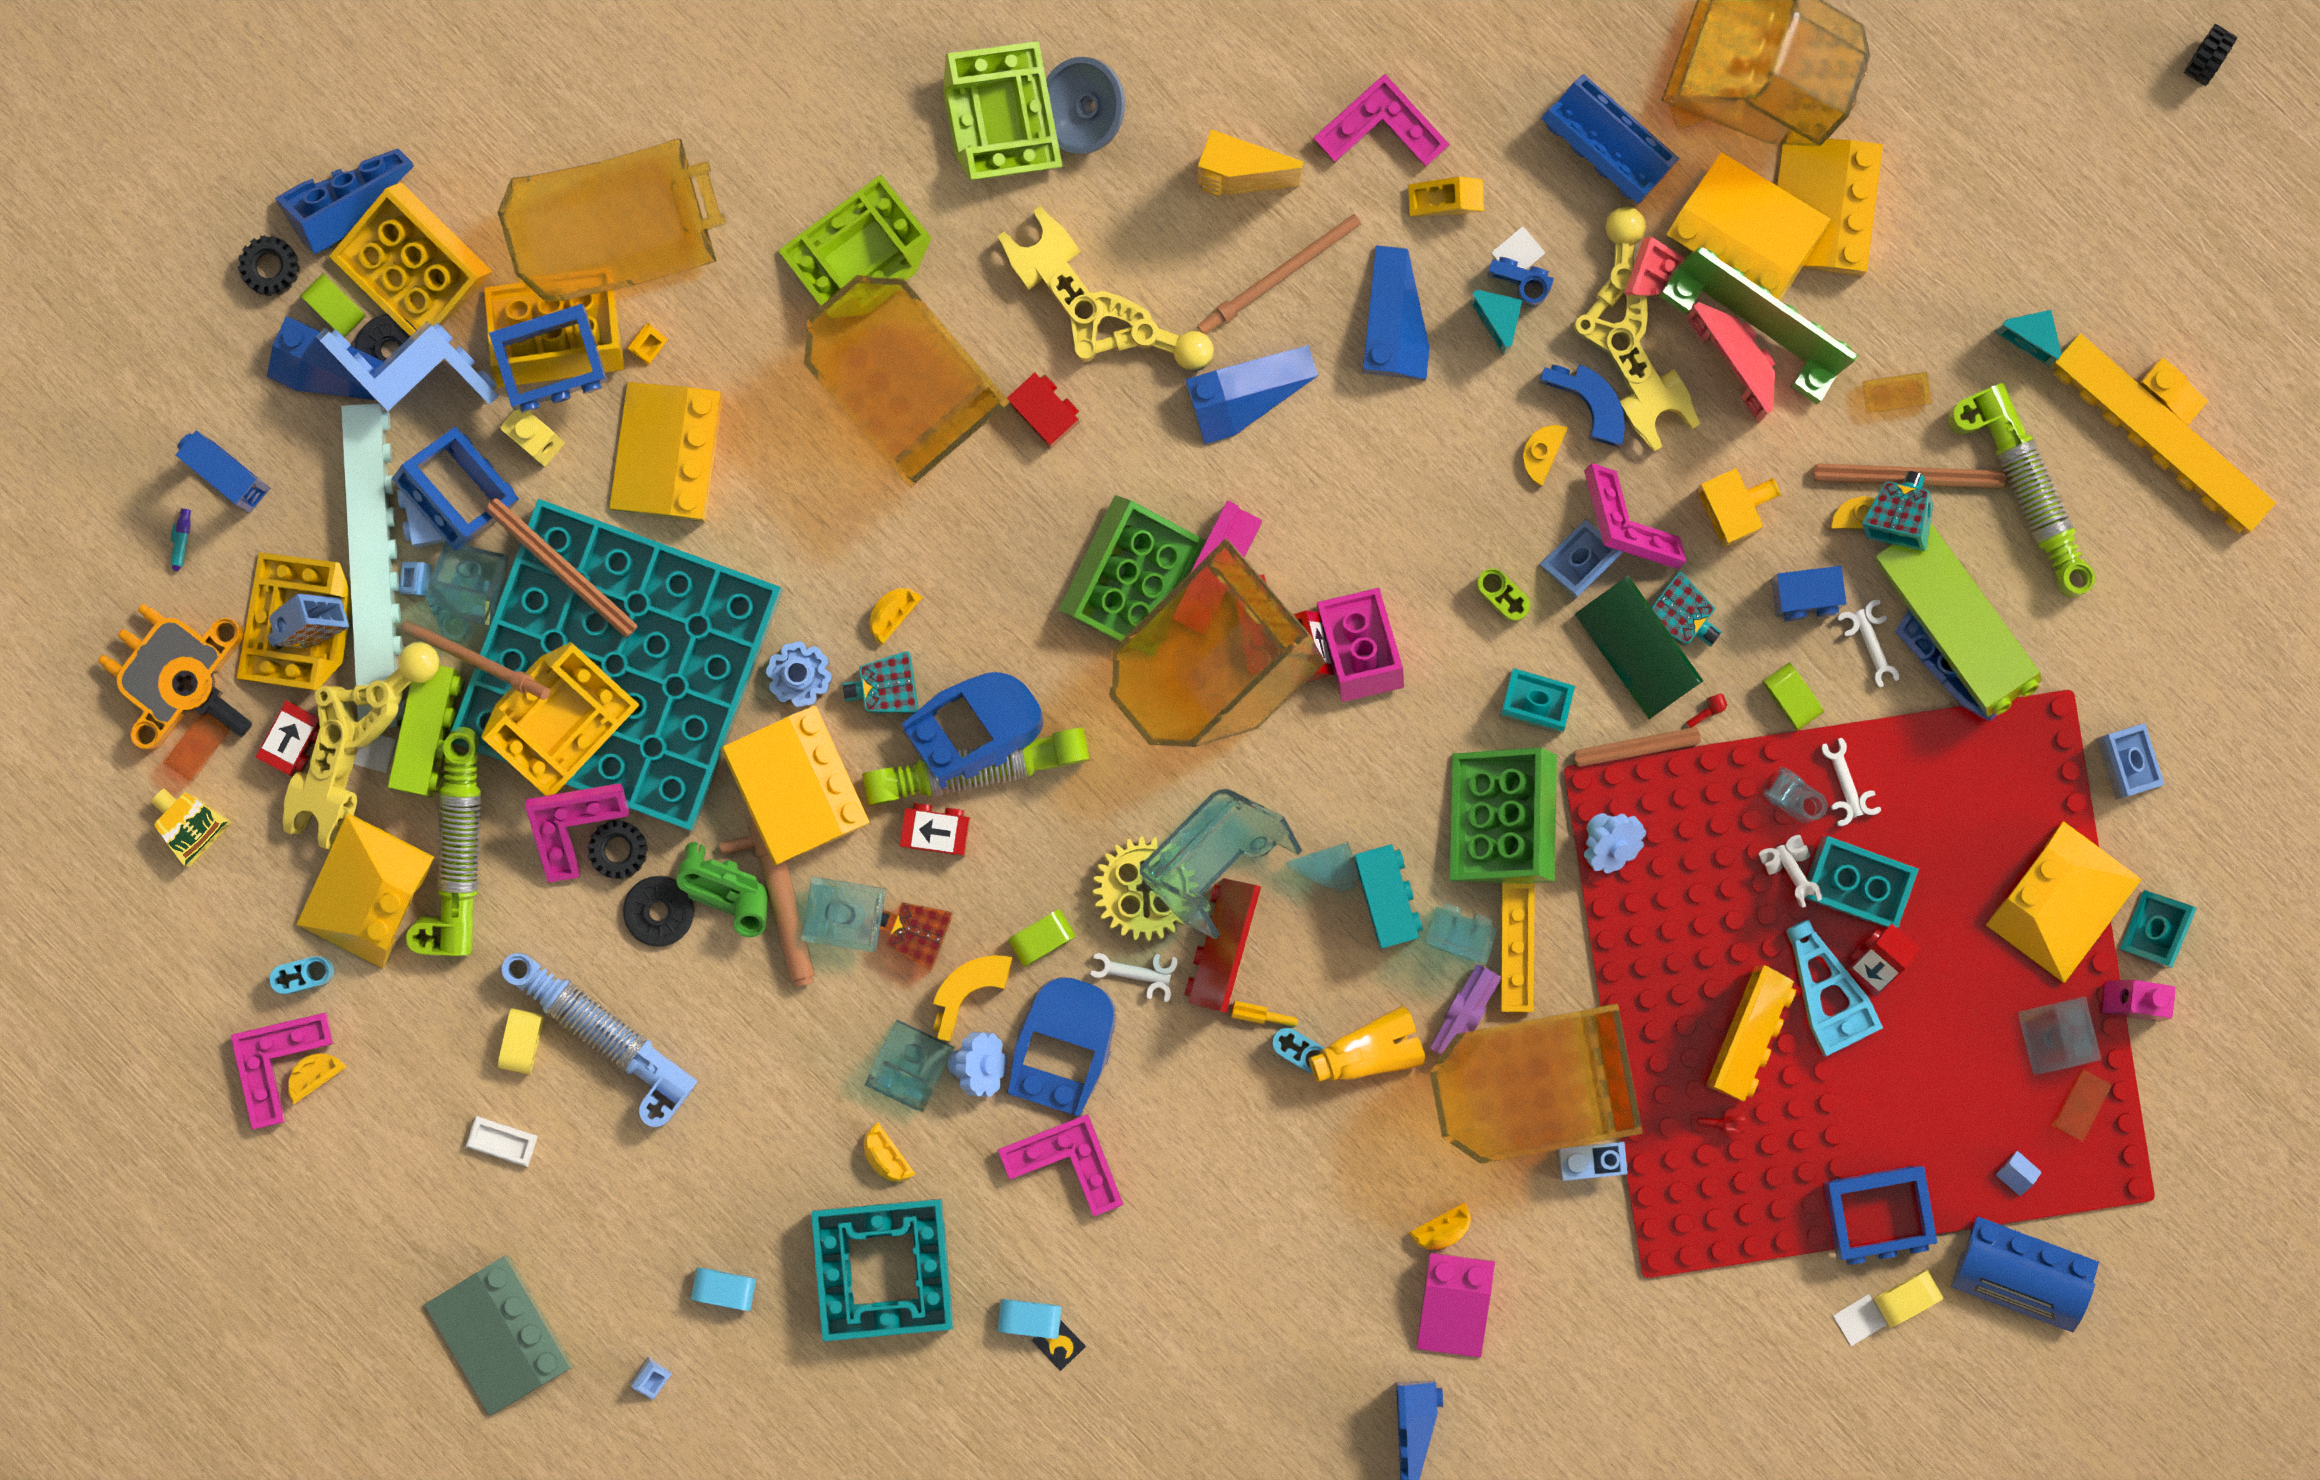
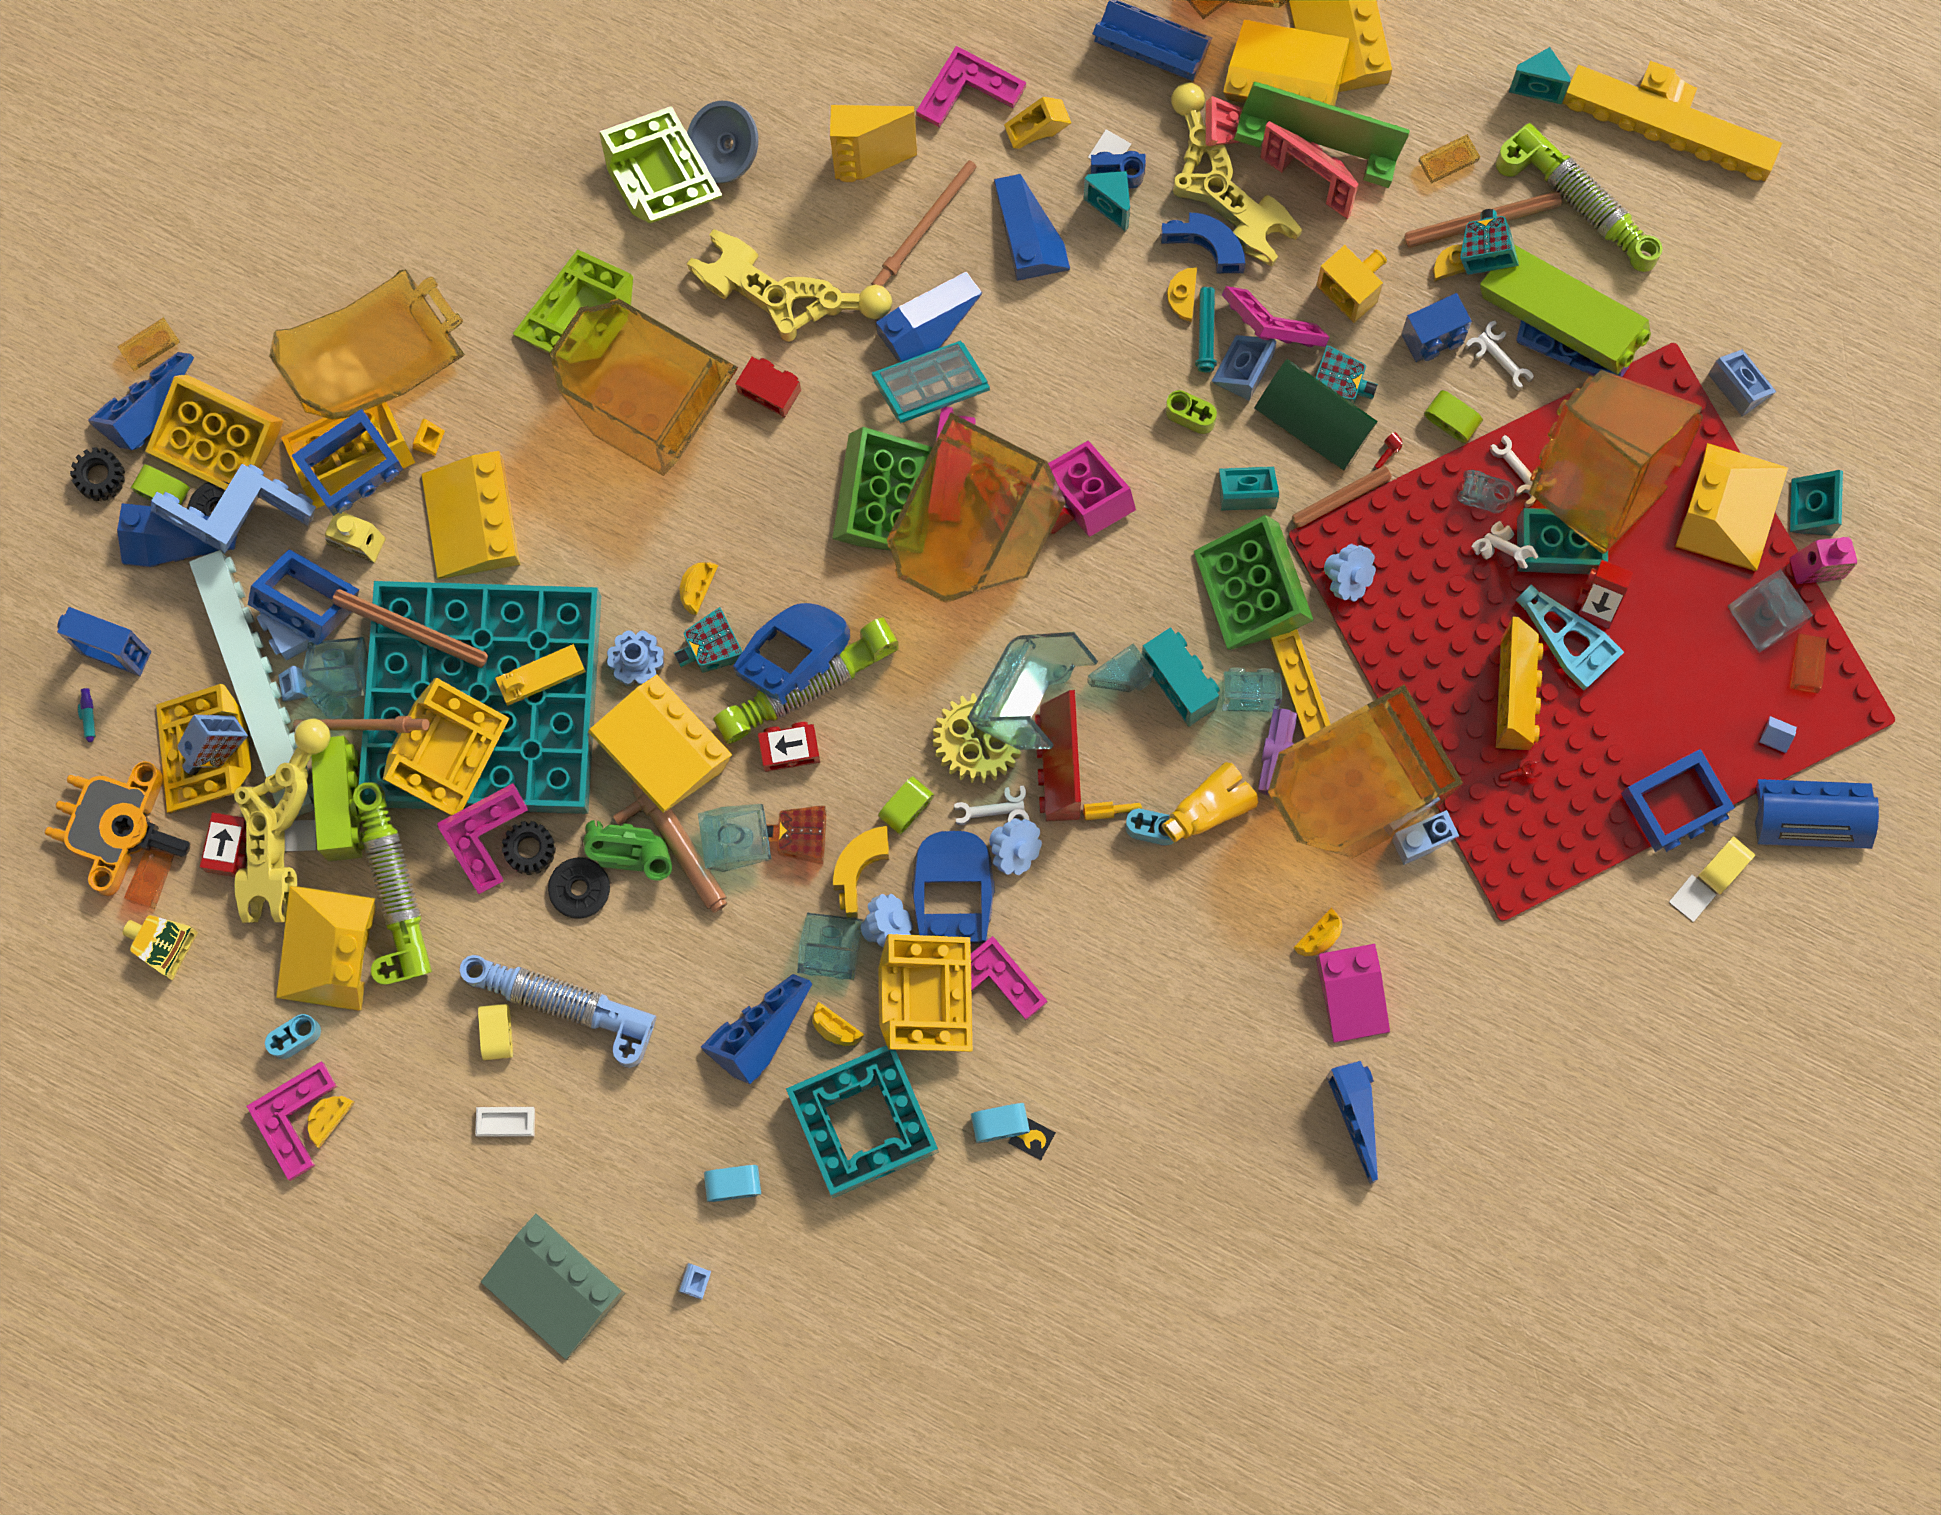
camera: 20 degrees left, 10 degrees down
(367, 130) = (148, 344): none -> clear yellow plate
(687, 667) = (540, 675): none -> yellow hinge
(794, 1140) = (753, 1039): none -> blue wedge
(994, 1157) = (926, 993): none -> yellow slope
(1144, 1024) = (1015, 846): none -> light blue plant
(1224, 466) = (930, 381): none -> clear piece
(1553, 504) = (1206, 330): none -> teal axle
(1940, 816) = (1612, 455): none -> clear yellow windscreen

